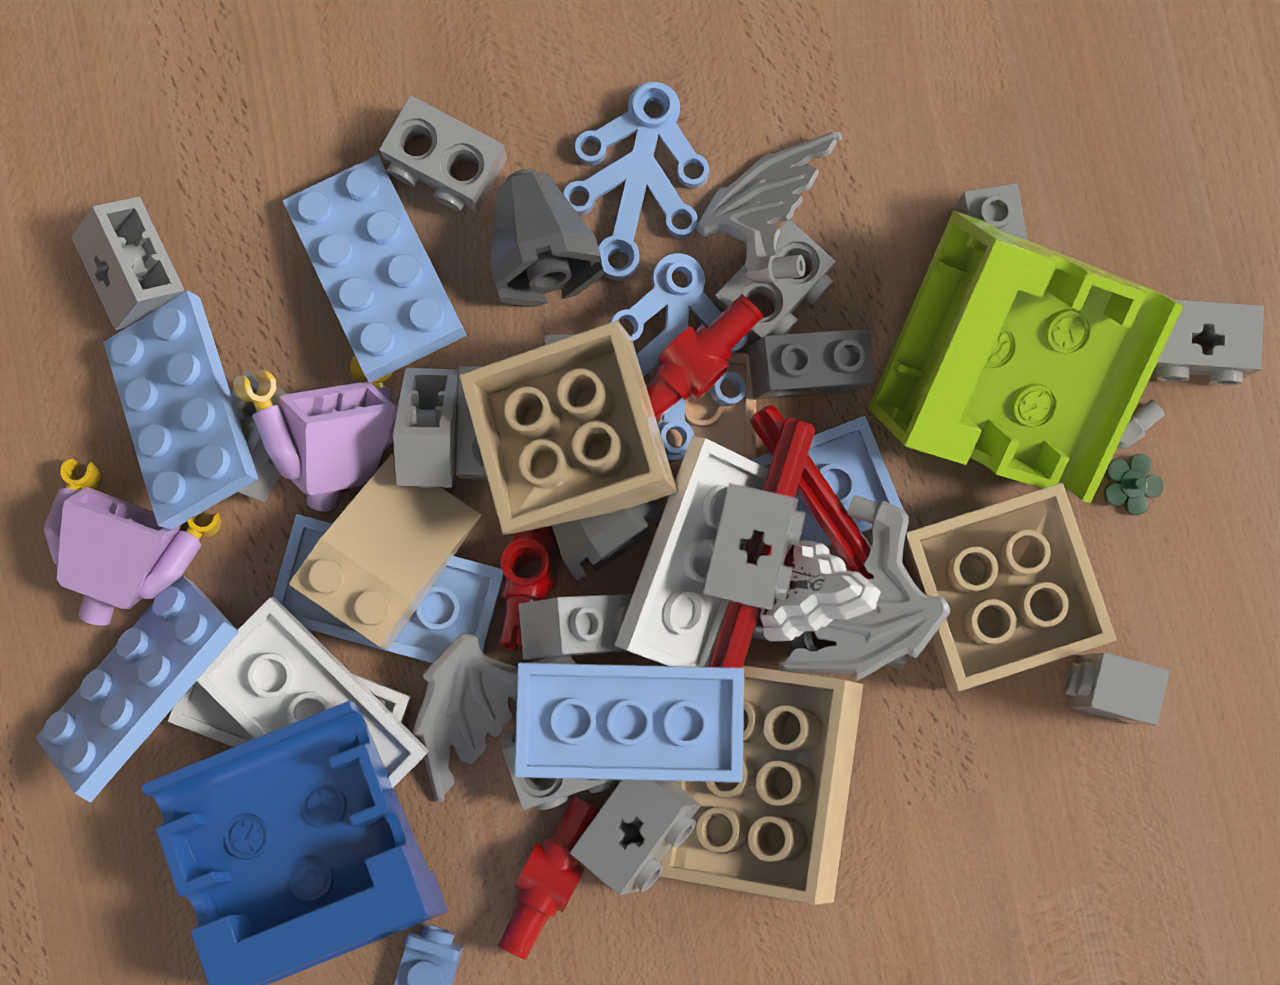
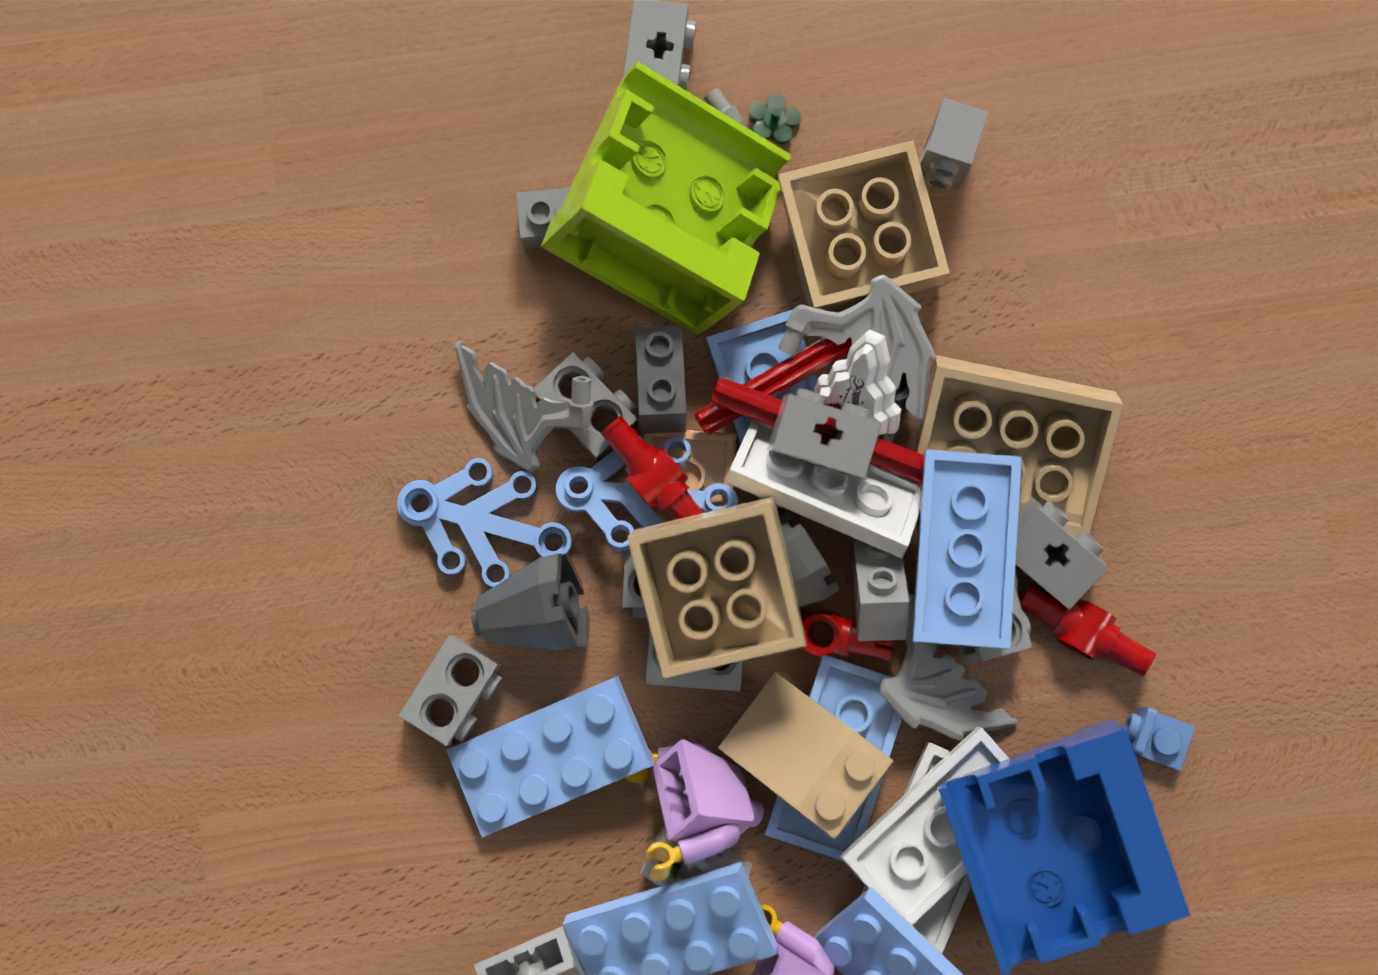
camera: 90 degrees left, 0 degrees up
(426, 428) = (699, 713): light grey brick -> none

